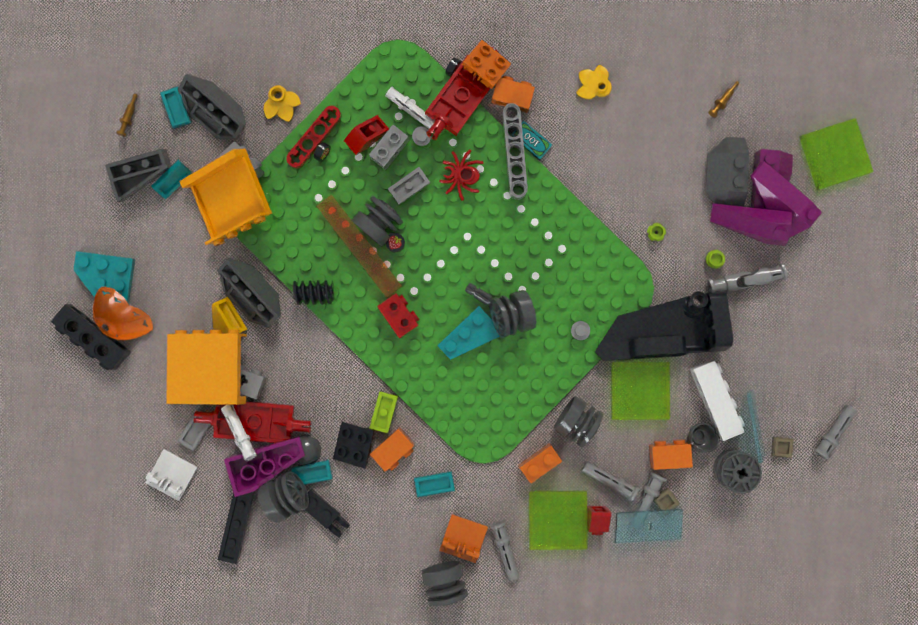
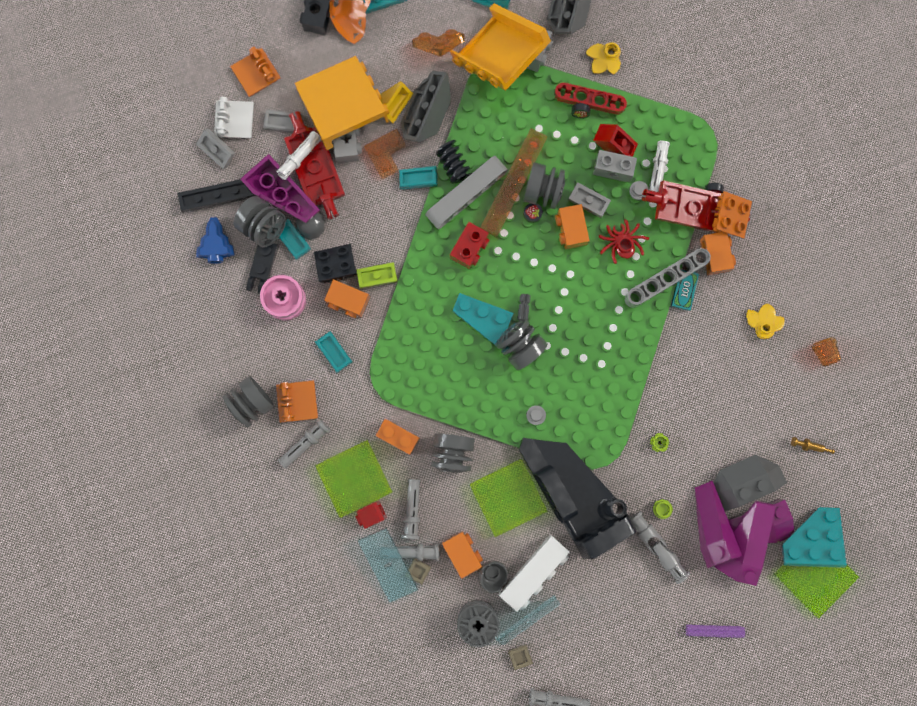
camera: 70 degrees right, 5 degrees down
(135, 433) = (255, 71): none -> orange hinge
(192, 504) = (215, 148): none -> light grey plate
(194, 252) = (438, 45): none -> clear orange plate
(266, 351) = (381, 150): none -> clear orange plate
(282, 546) = (214, 244): none -> blue rock
(310, 330) = (418, 177): none -> teal tile
(347, 294) = (466, 192): none -> light grey beam
(357, 517) = (275, 289): none -> bright pink wheel
(426, 213) = (572, 226): none -> orange brick
(647, 42) = (827, 351): none -> clear orange piece
(809, 139) = (817, 541): none -> teal plate
(841, 266) = (715, 631): none -> medium lavender axle

